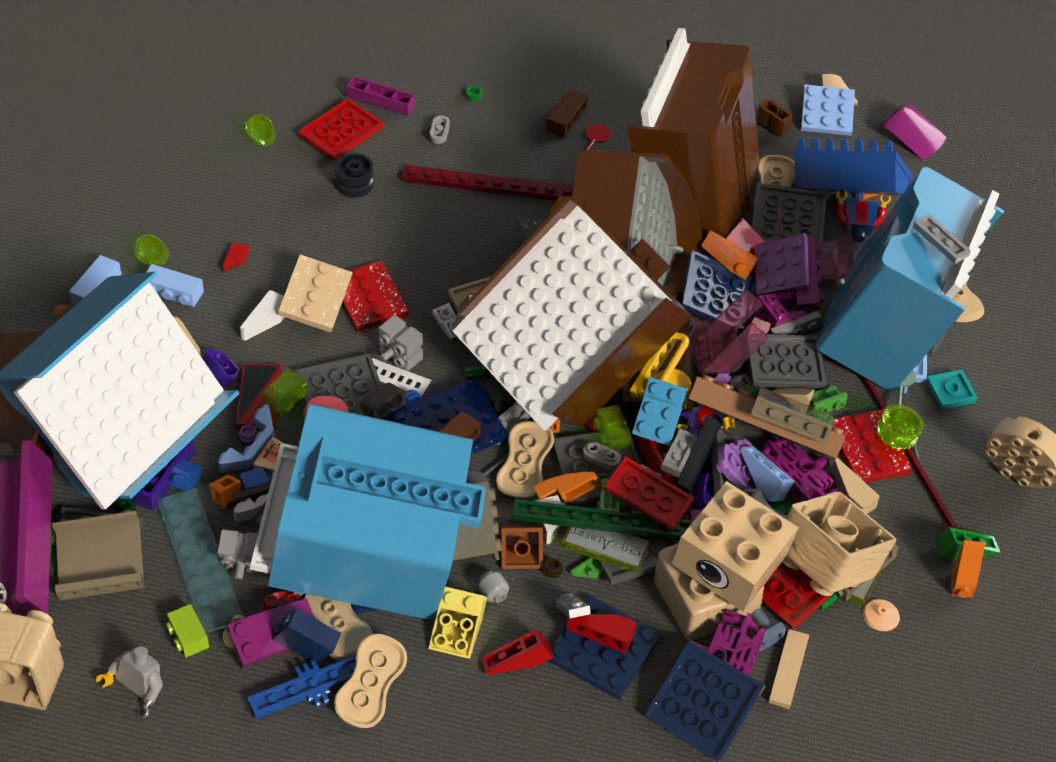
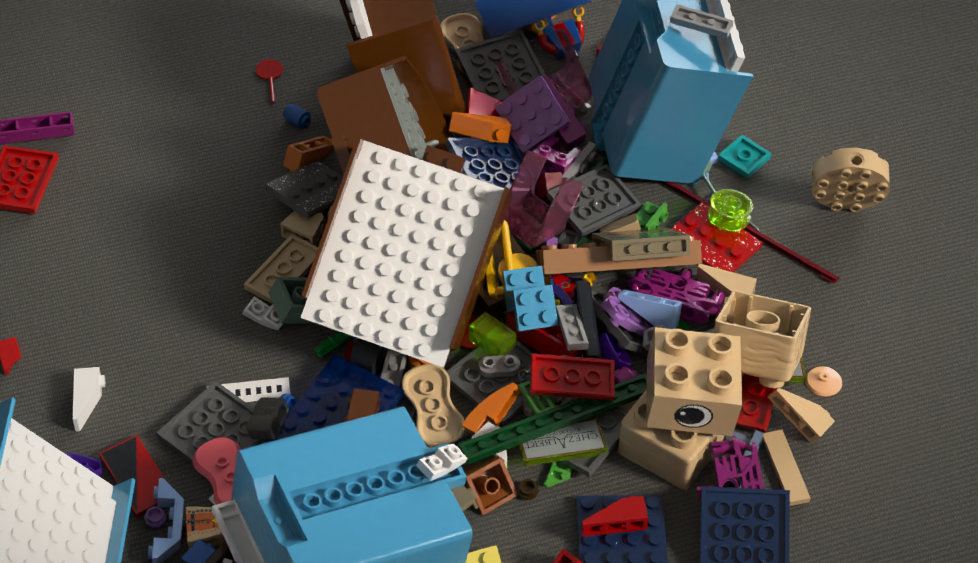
camera: 30 degrees left, 0 degrees up
(285, 392) = (166, 458): clear neon green brick -> none
(315, 293) = (121, 350): tan plate -> none
(354, 175) = (69, 217): black wheel -> none
(372, 297) = (170, 327): red plate -> none
(400, 343) = (240, 356): light grey brick -> none
(439, 129) = (117, 134): light grey plate -> none
(471, 499) = (444, 461): none -> white slope
(474, 93) = (123, 84): green tile -> none
(485, 183) = (202, 165): dark red plate -> none
(493, 586) = (491, 533): light grey head -> none
(567, 113) = (228, 63): reddish brown brick -> none
(572, 605) = (576, 512): light grey plate -> none
(836, 634) = (803, 414): none -> tan slope
(951, 540) = (849, 285): green slope -> none
(967, 569) = (870, 304): orange slope -> none

